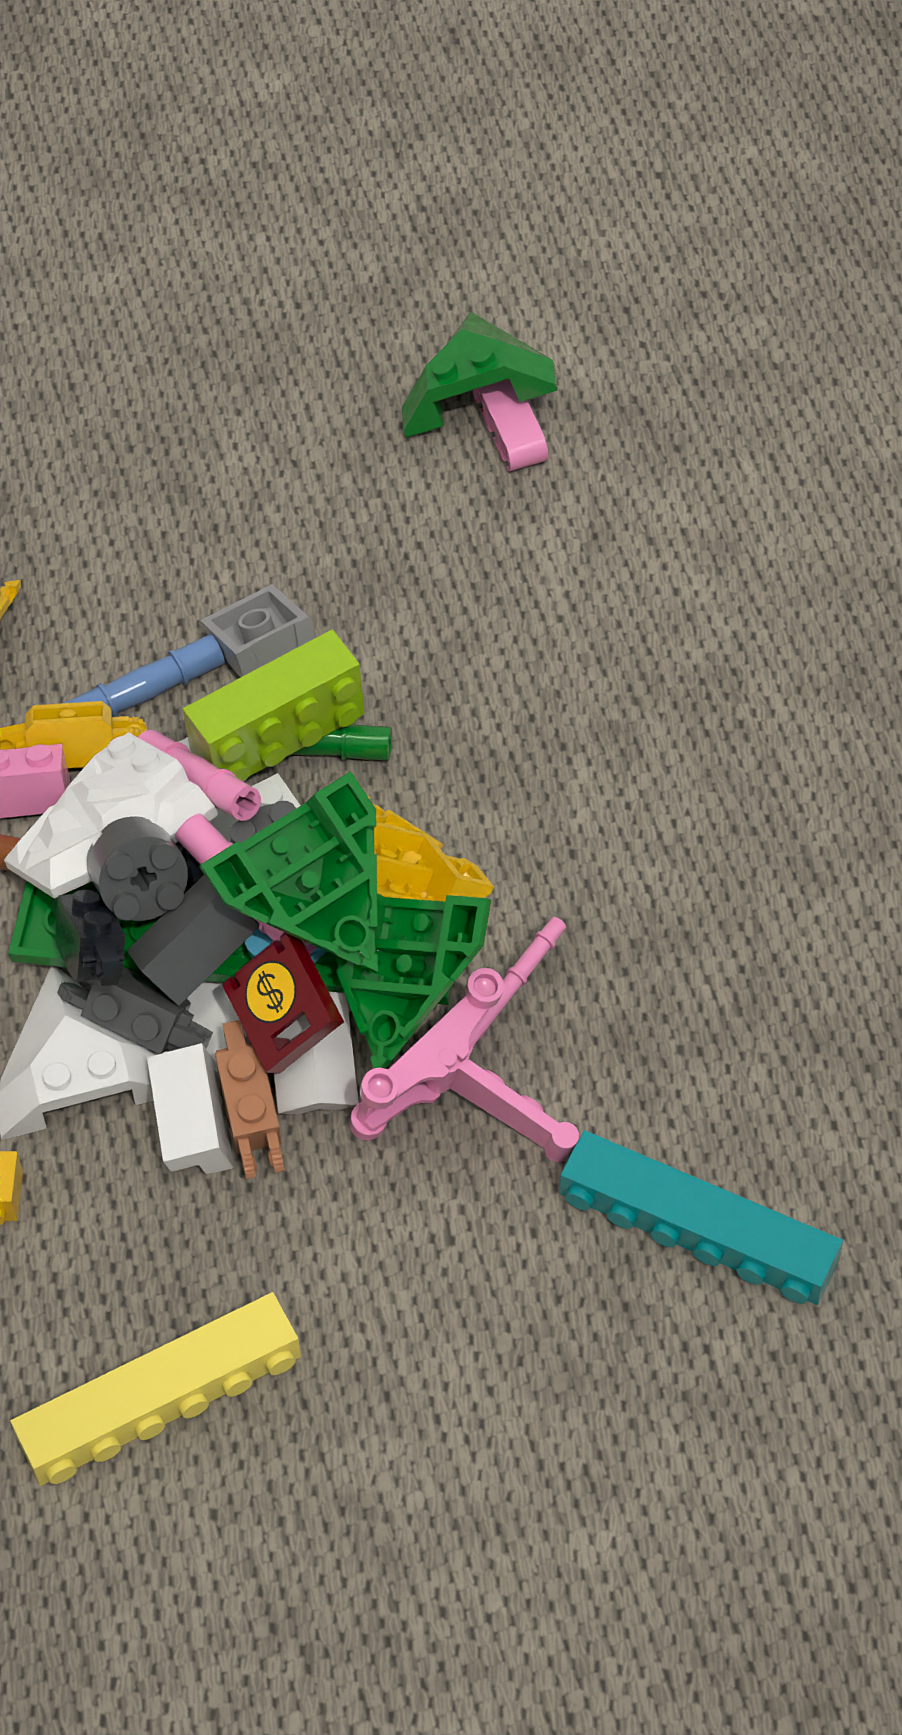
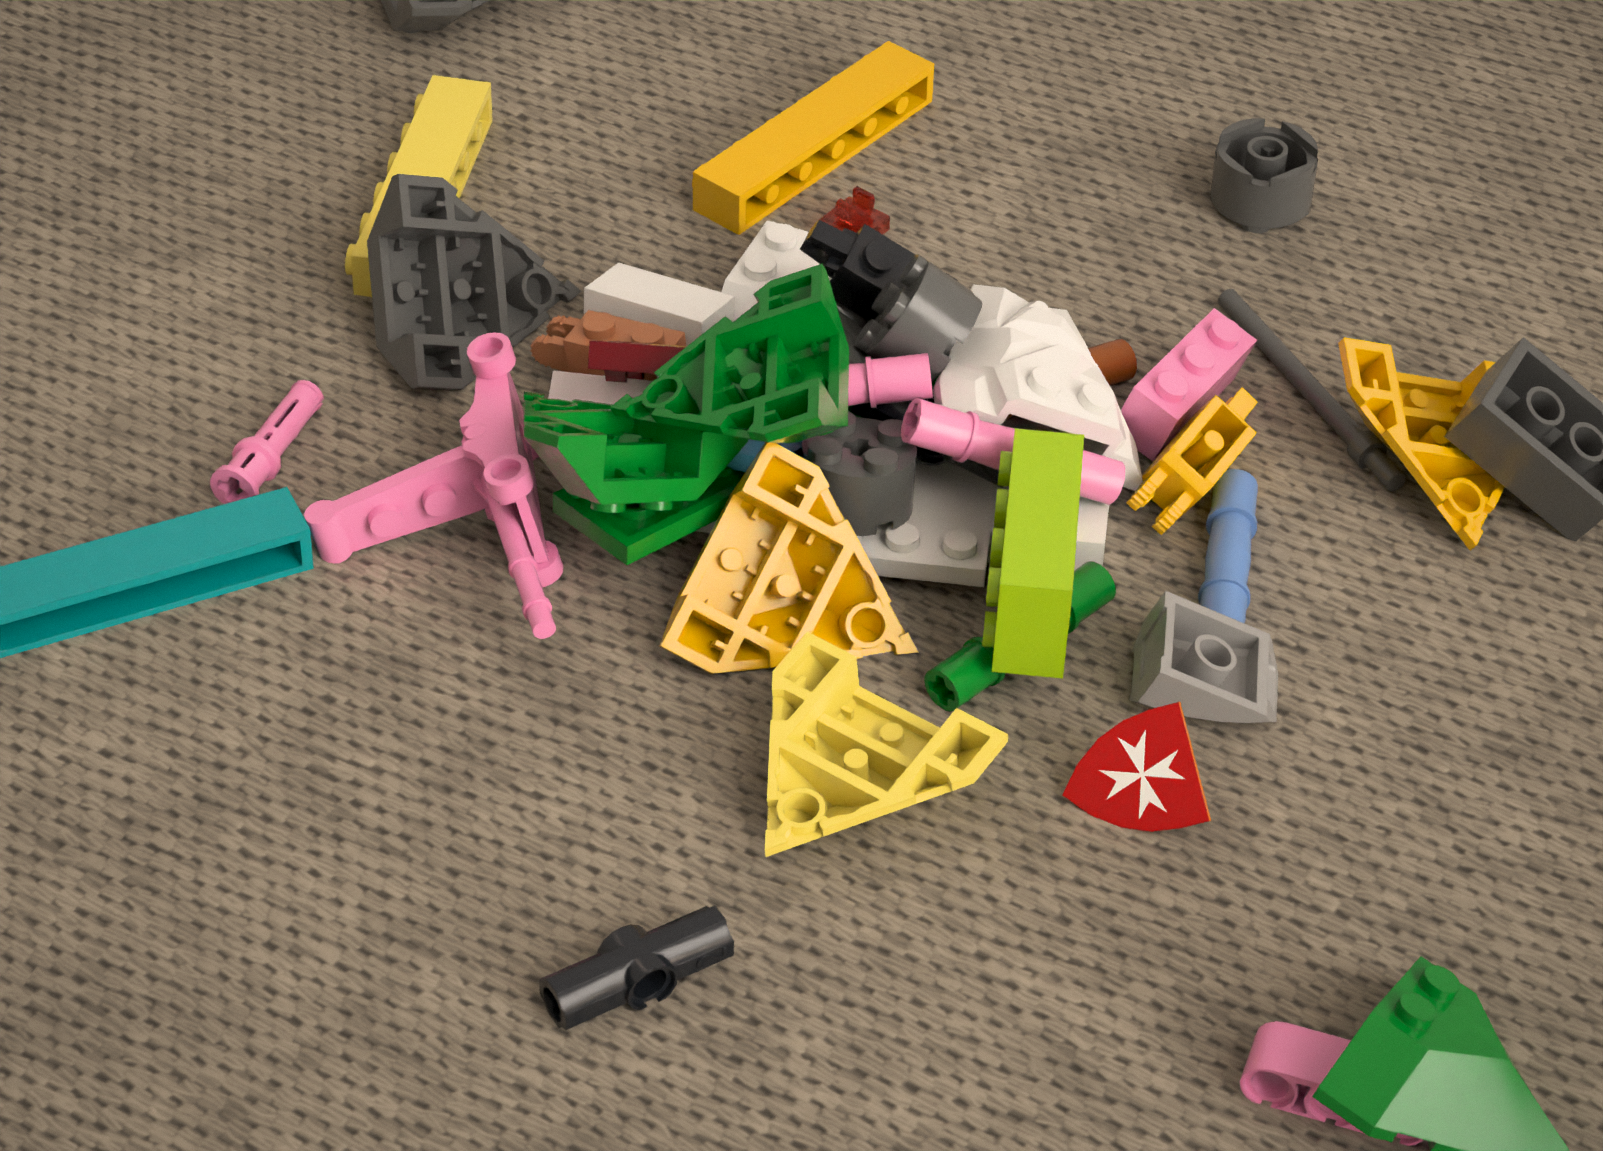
camera: 125 degrees right, 15 degrees down
(289, 1248) = (446, 280): none -> dark grey wedge
(376, 606) = (1142, 774): none -> red shield
(492, 722) = (853, 755): none -> light yellow wedge
(528, 1250) = (258, 457): none -> bright pink pin
(730, 737) = (636, 967): none -> black piece

